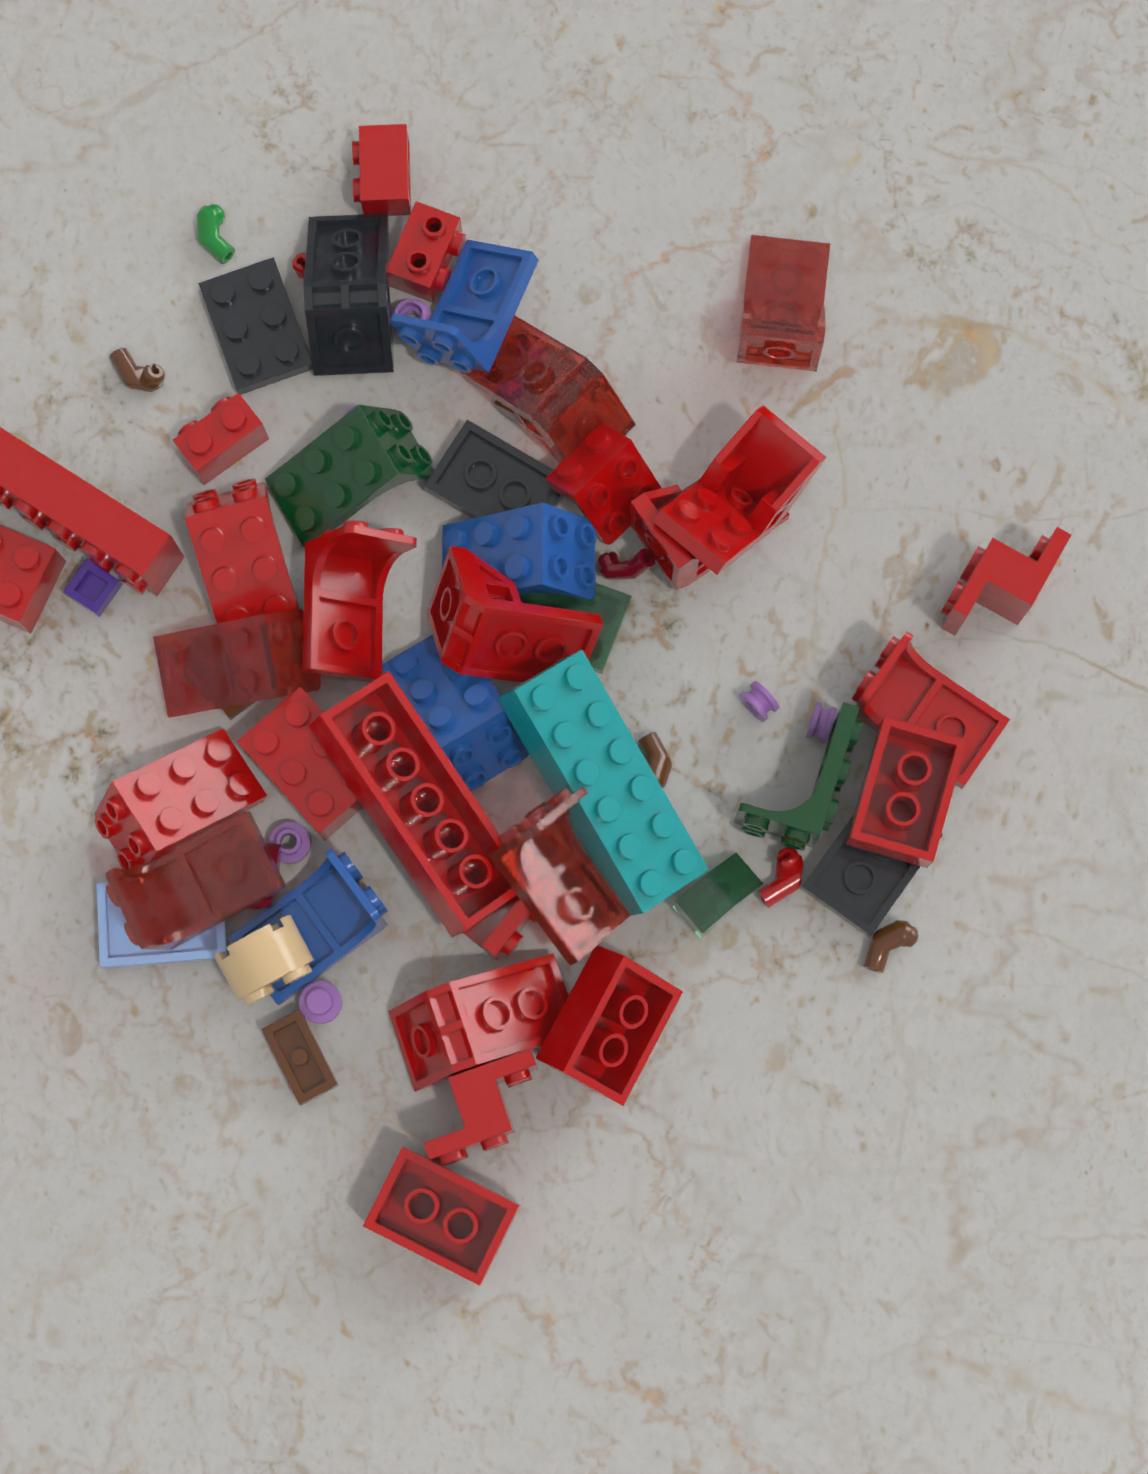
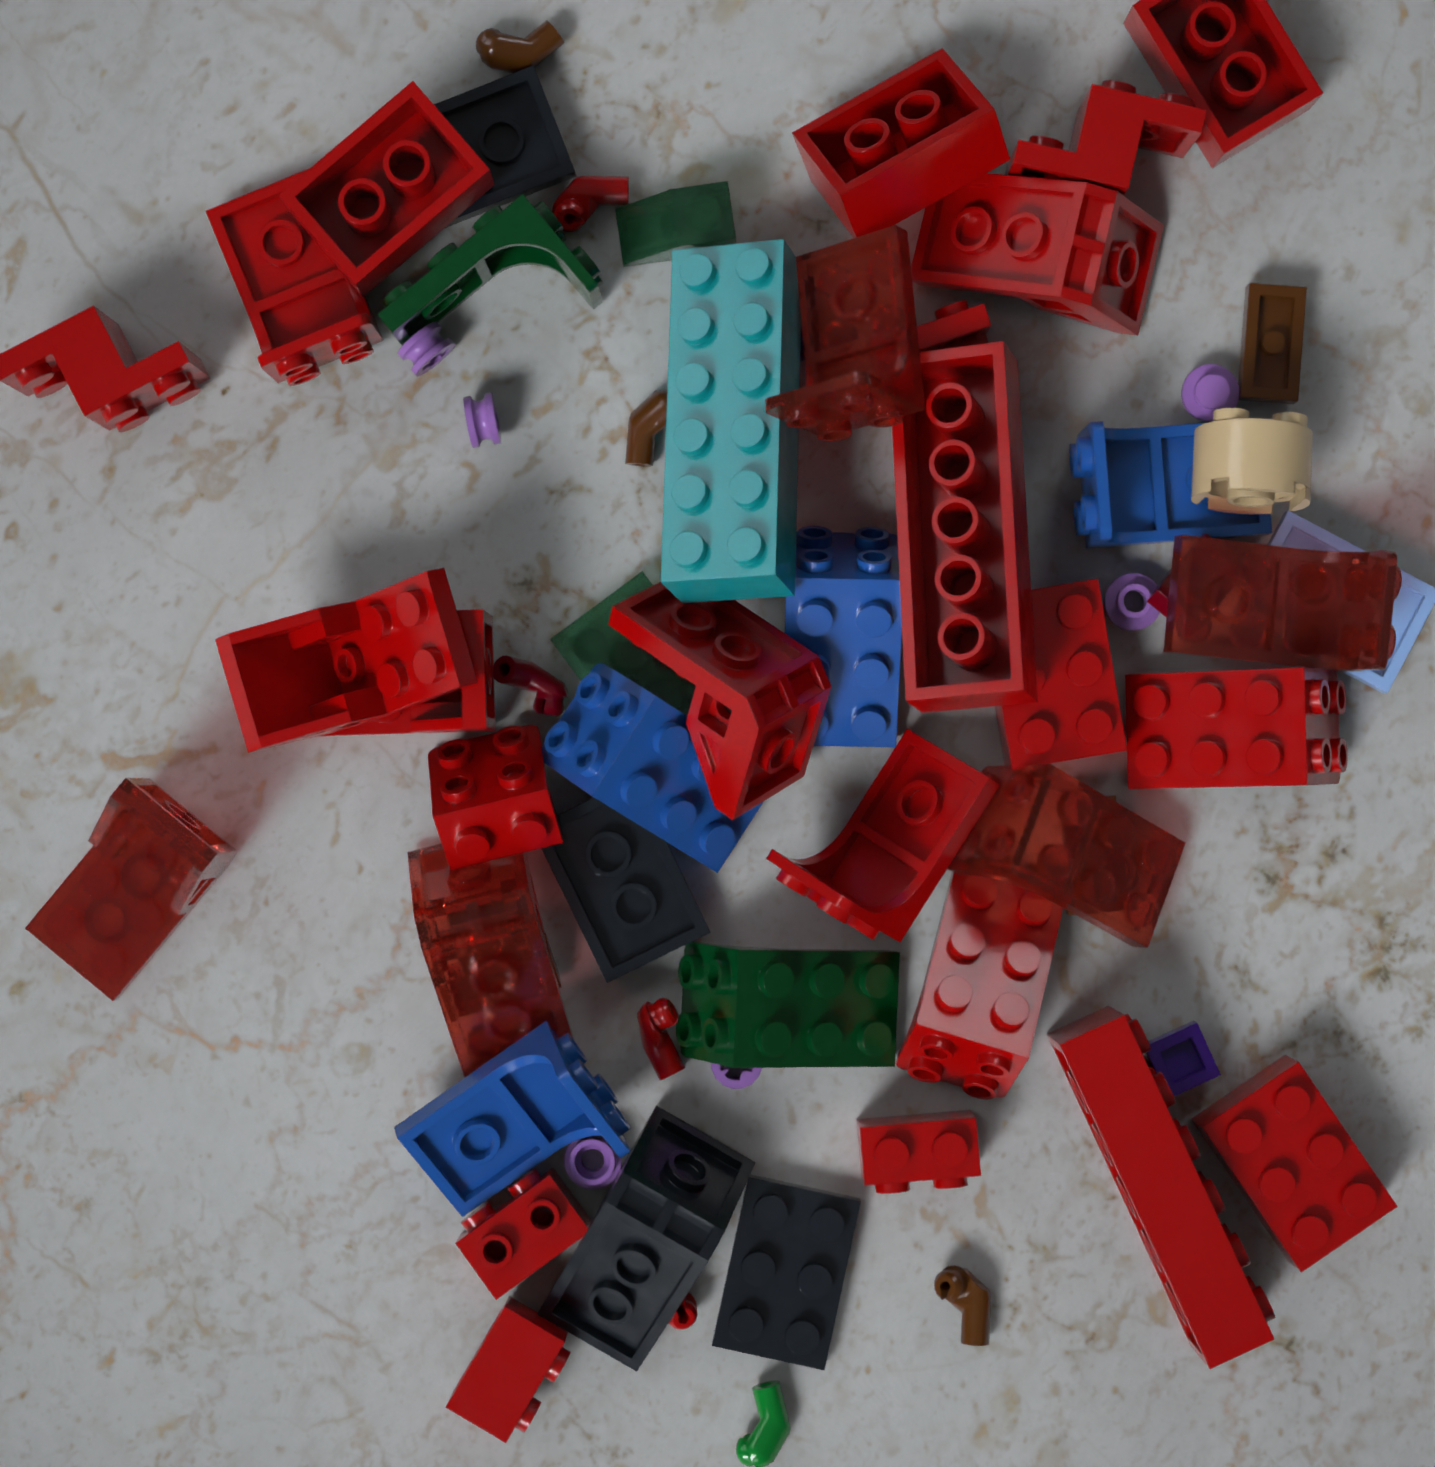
camera: 145 degrees left, 10 degrees up
(422, 413) = (656, 1041): none -> red arm

